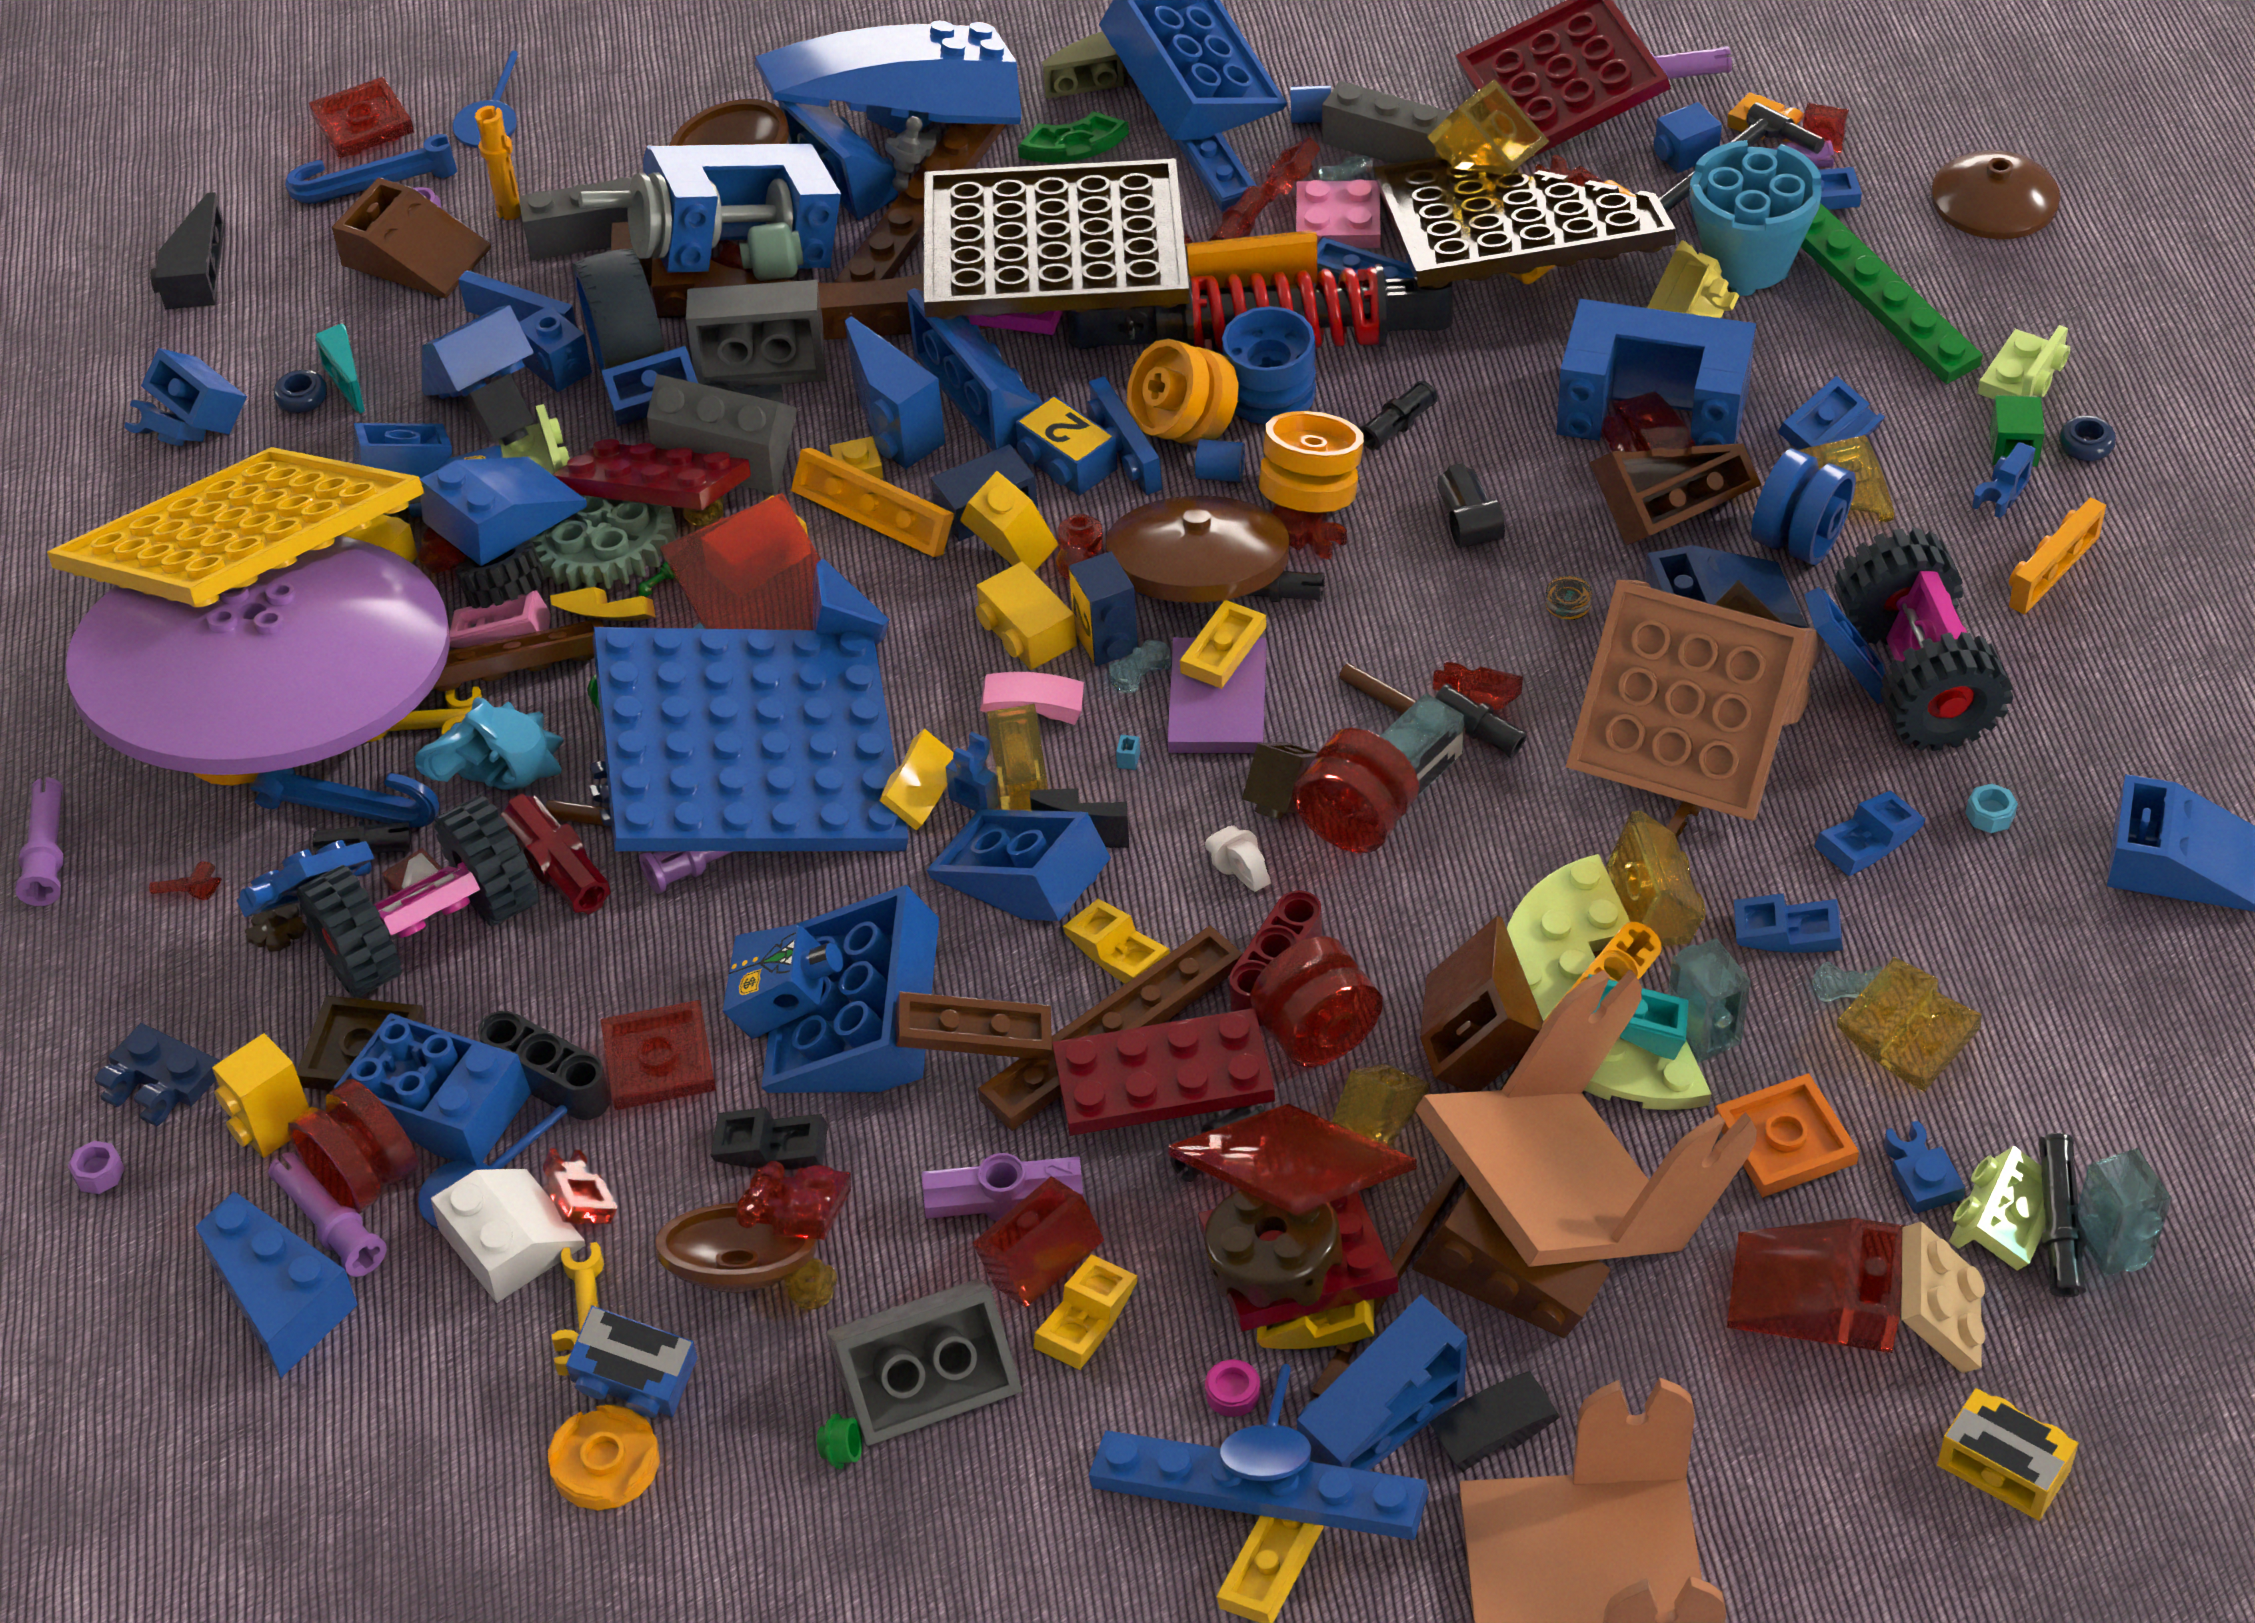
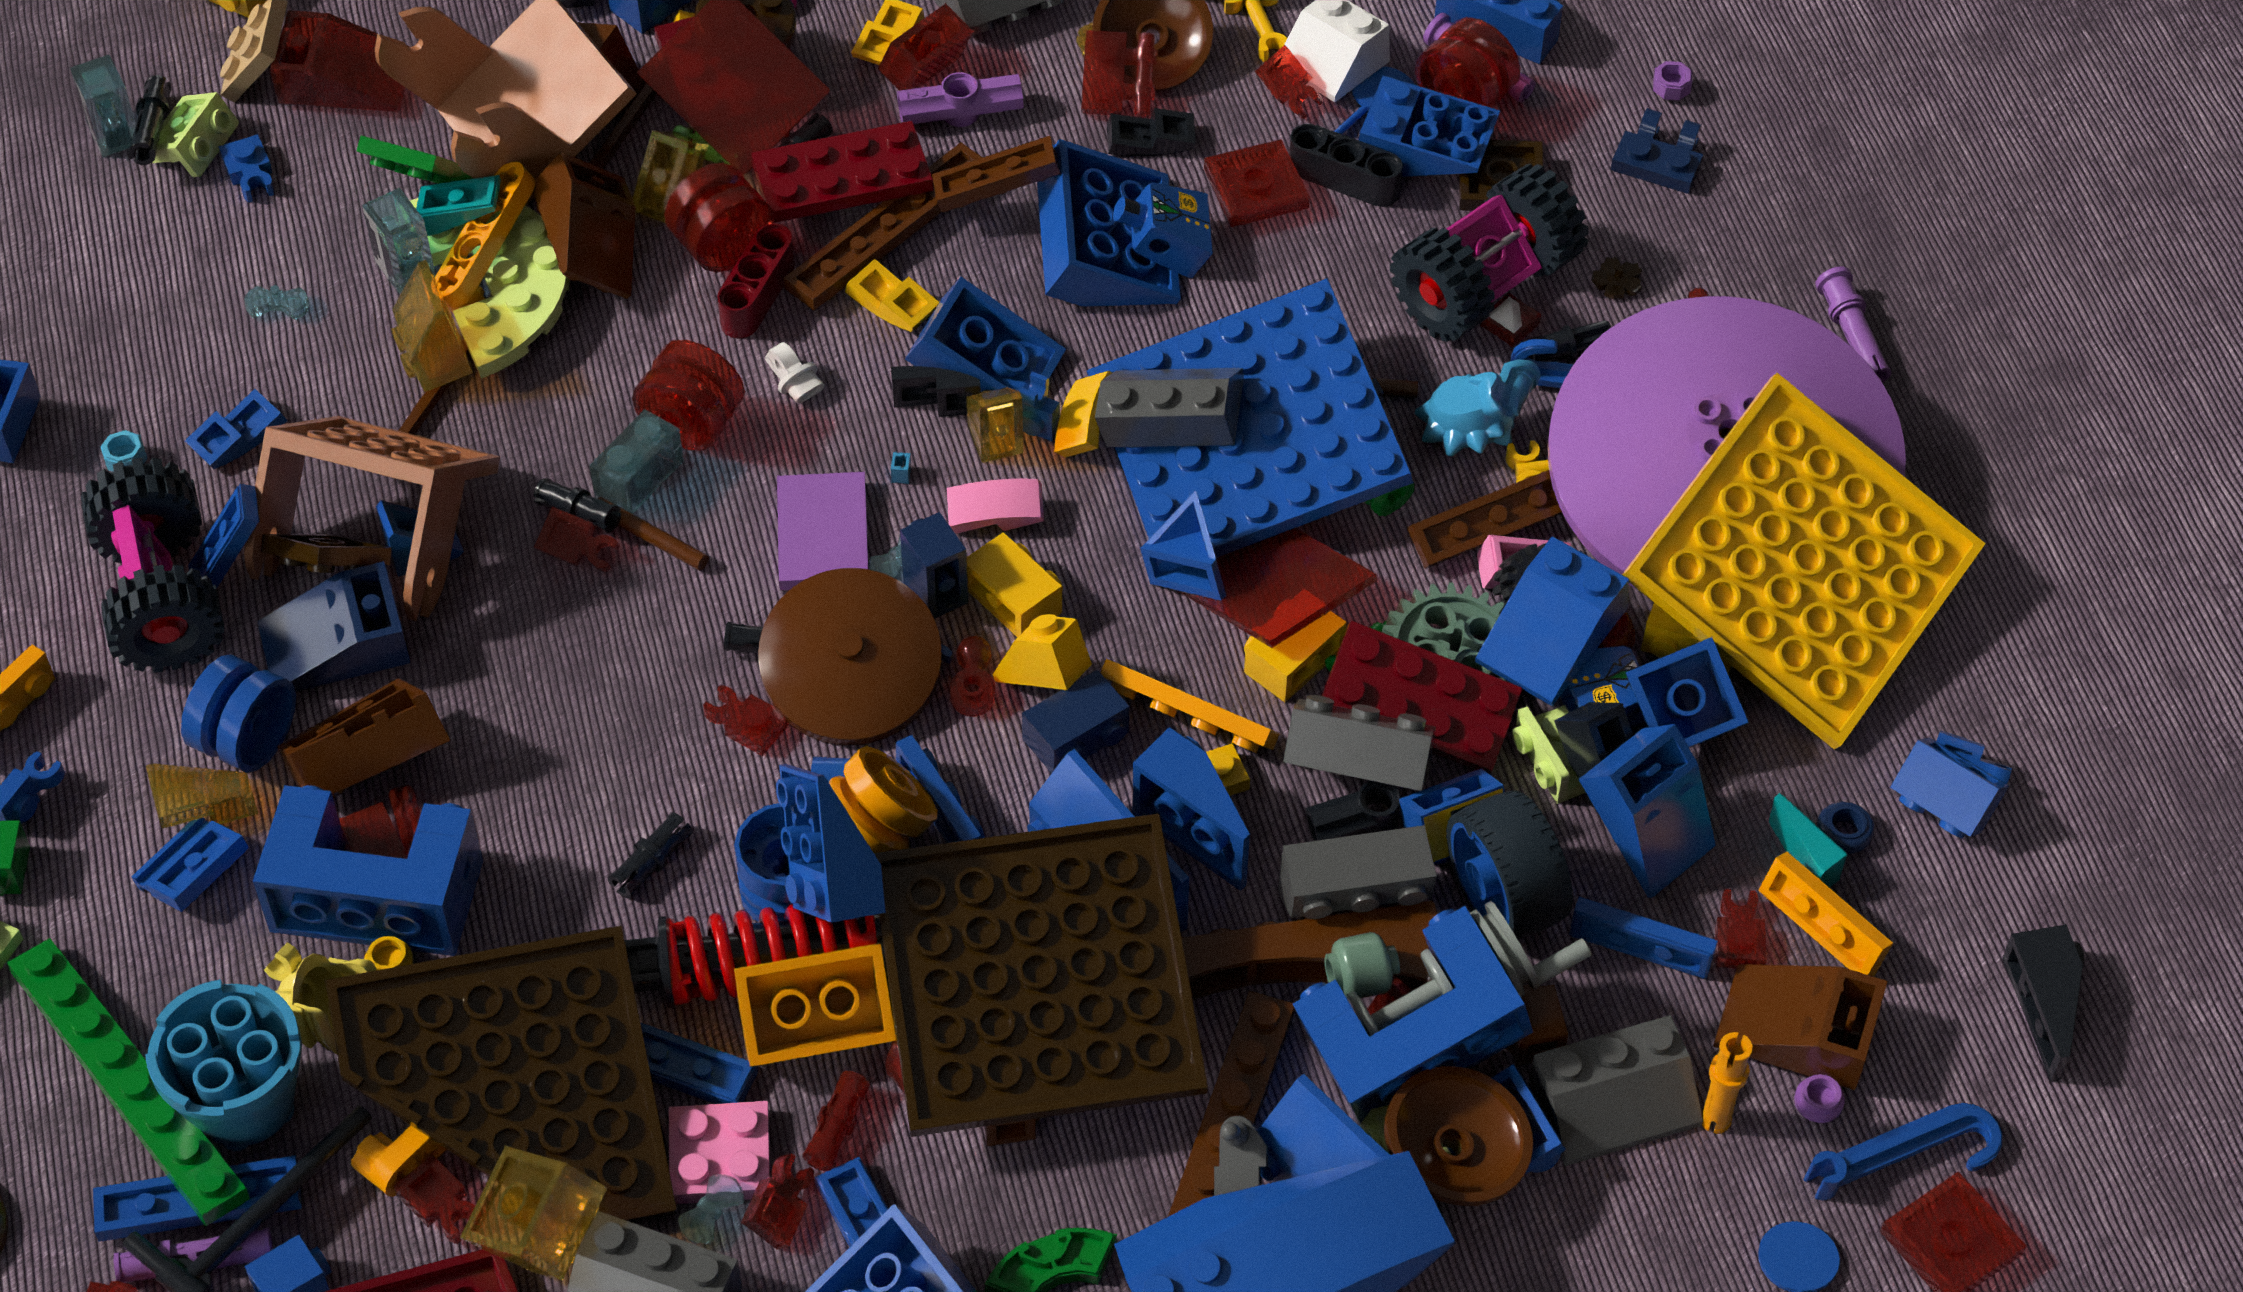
camera: 170 degrees right, 5 degrees up
(259, 1094) = (1555, 104): yellow brick -> none
(279, 888) = (1590, 257): blue plate -> none
(351, 315) = (1825, 915): none -> light orange plate
(430, 319) = (1738, 935): none -> clear red plate
(556, 854) = (1395, 337): dark red piece -> none
(558, 349) = (1592, 869): blue head -> none
(593, 604) = (1417, 567): yellow slope -> none
(824, 734) = (1169, 407): none -> dark grey slope
(1066, 445) = (995, 782): brick -> none
(1223, 270) = (828, 858): none -> blue slope
(1223, 644) = (817, 544): yellow plate -> none
(1273, 777) = (753, 440): dark brown slope -> none
(1310, 461) = (721, 724): light orange wheel -> none
(1471, 513) = (576, 728): black piece -> none
(1568, 597) = (484, 654): clear smoke tile -> none
(1686, 1071) = (410, 161): none -> green plate
(1794, 1137) = (344, 178): orange plate -> none
(1797, 928) = (334, 346): blue slope -> none
(1909, 1024) = (234, 266): clear yellow slope -> none

